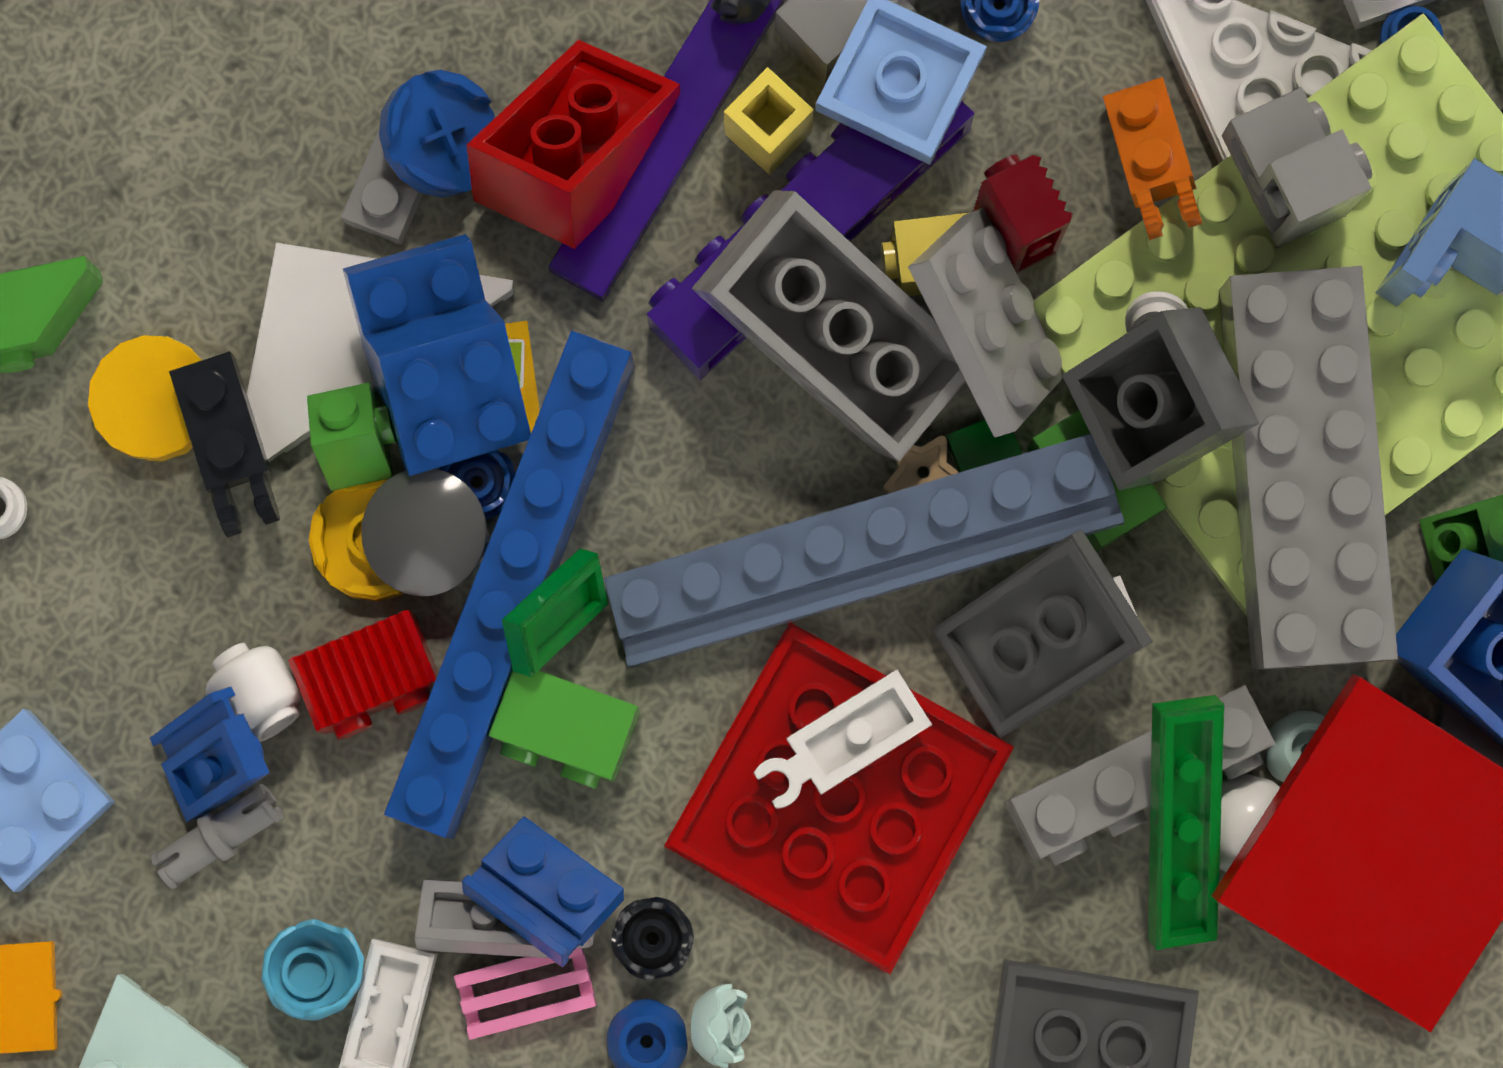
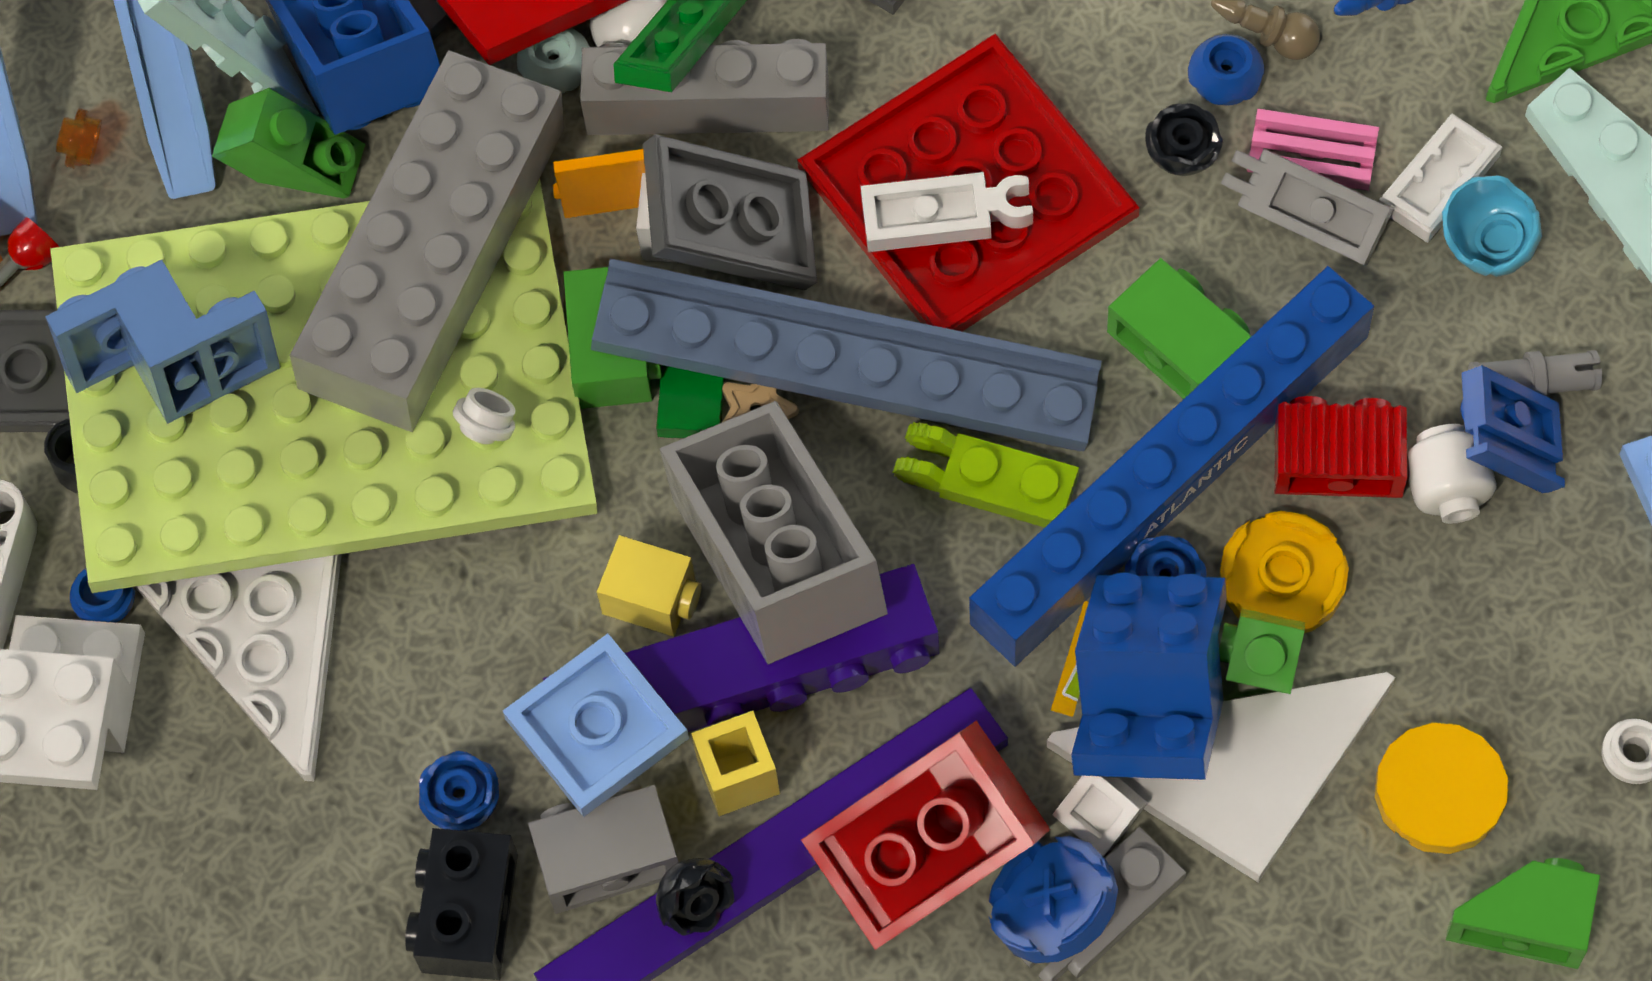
camera: 150 degrees left, 15 degrees down
(224, 437) = (1385, 708): black hinge -> none
(424, 532) = (1235, 534): dark grey dish -> none
(433, 224) = (1100, 810): none -> white plate
(543, 891) = (1261, 205): blue plate -> none
(555, 612) = (1144, 412): green tile -> none
(676, 509) = (989, 475): none -> lime hinge
(720, 1025) = (1159, 50): light aqua plate -> none
(988, 321) = (633, 478): light grey plate -> none
(1024, 209) = (551, 567): dark red brick -> none
(1152, 152) = (399, 580): orange hinge -> none
(1160, 398) = (524, 330): dark grey brick -> none
(1183, 617) = (599, 183): none -> light orange piece
(1296, 166) = (295, 466): light grey brick -> none

